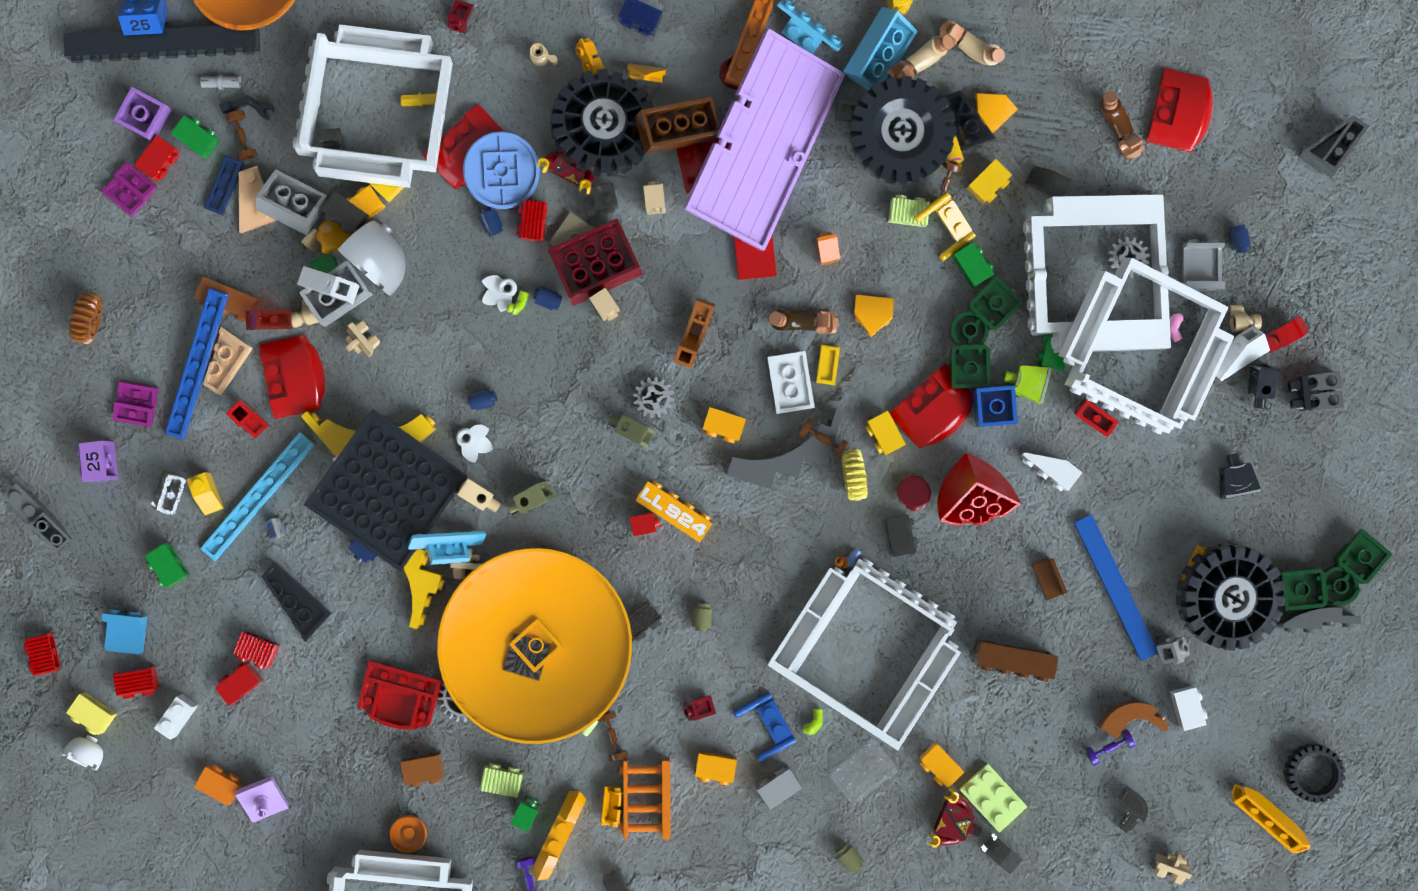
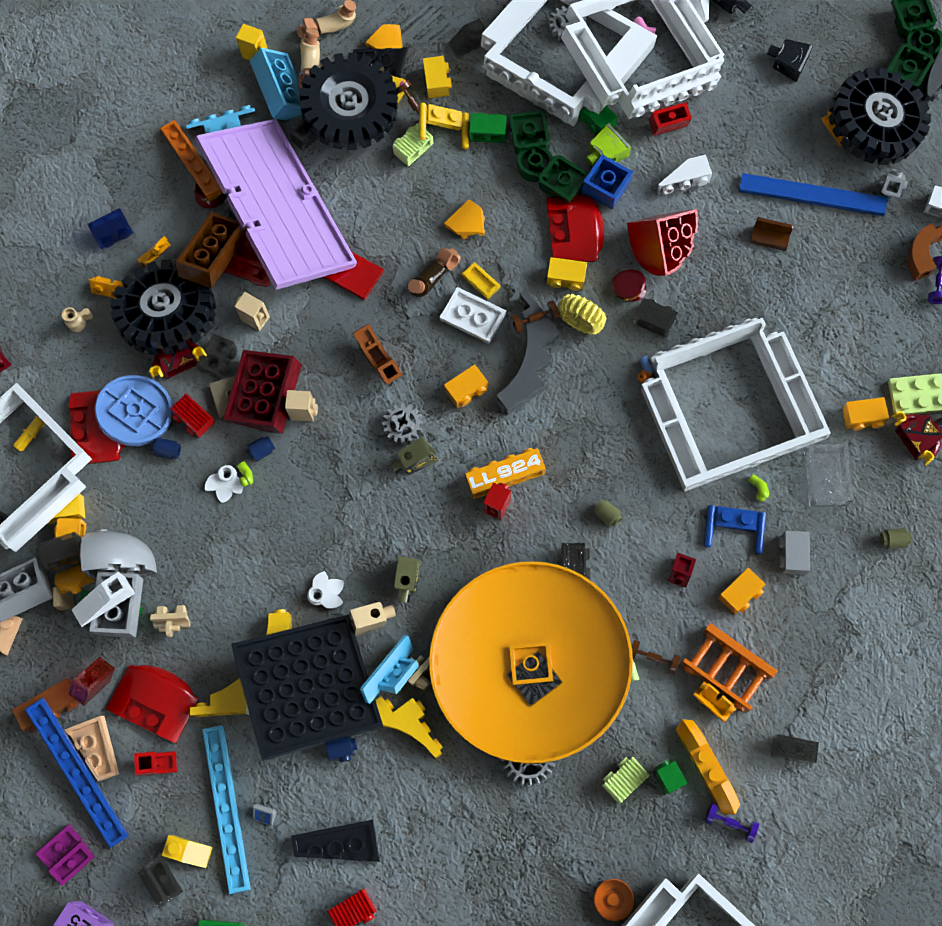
camera: 45 degrees left, 15 degrees down
(305, 316) = (116, 647): tan piece -> none
(398, 696) = (487, 814): red slope -> none
(423, 769) = (566, 841): dark orange brick -> none
(482, 399) = (297, 558): dark blue brick -> none
(827, 248) = (392, 216): slope -> none
(1015, 659) = (817, 298): reddish brown brick -> none

